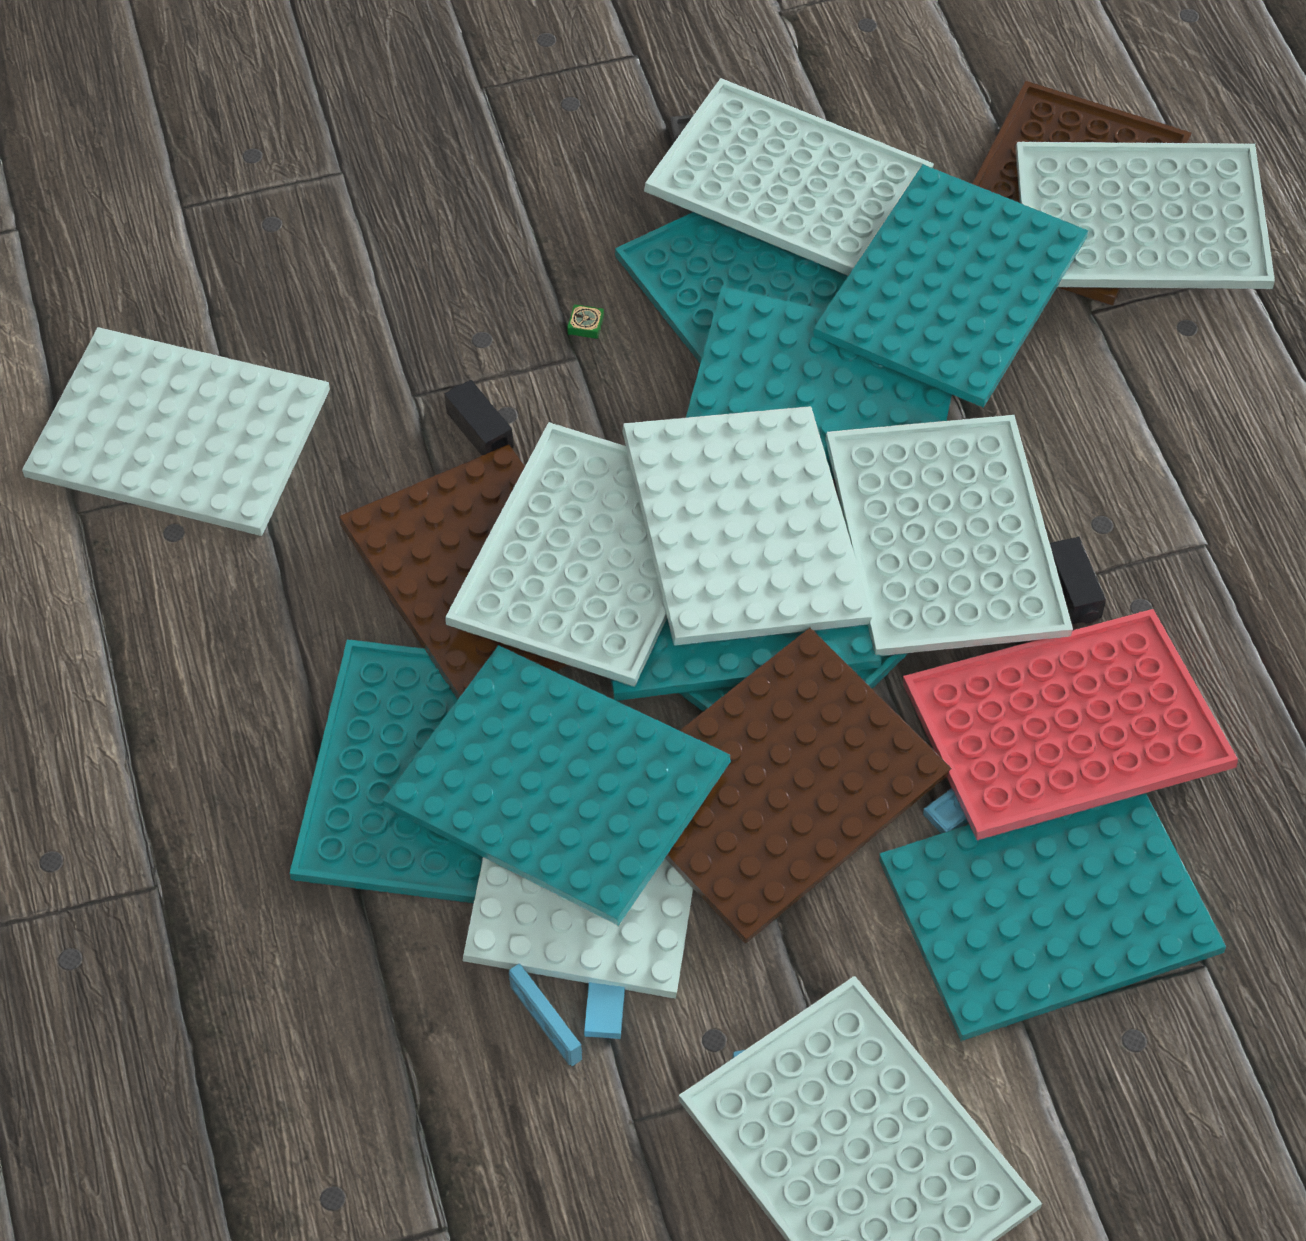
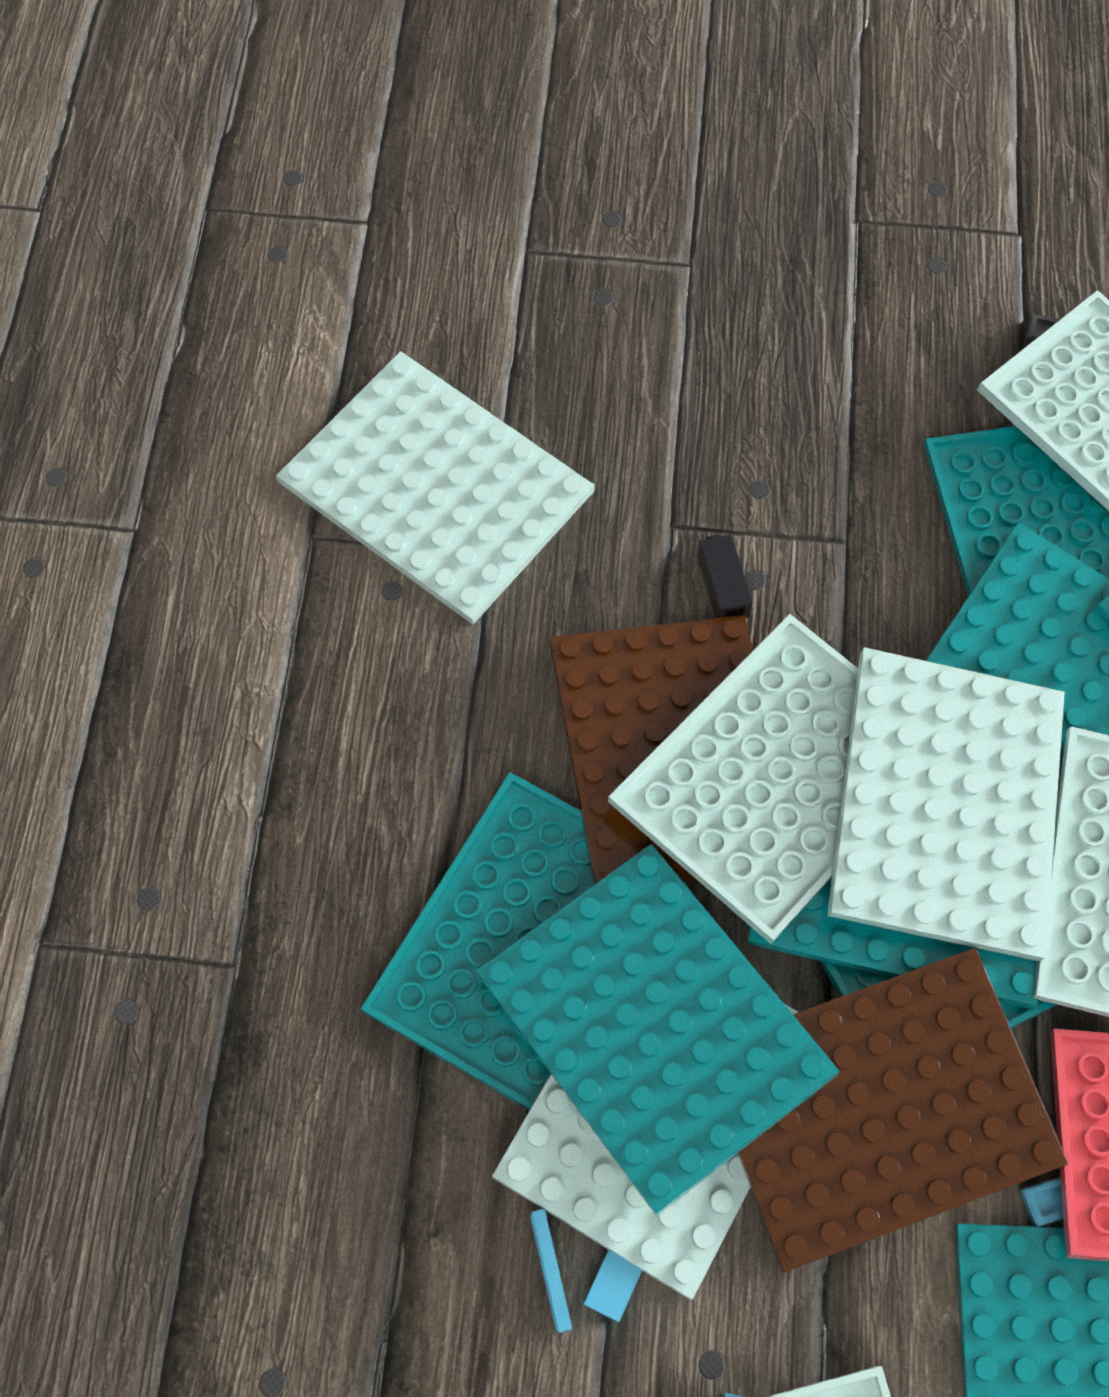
camera: 20 degrees right, 10 degrees up
(585, 321) = (868, 506): tile -> none

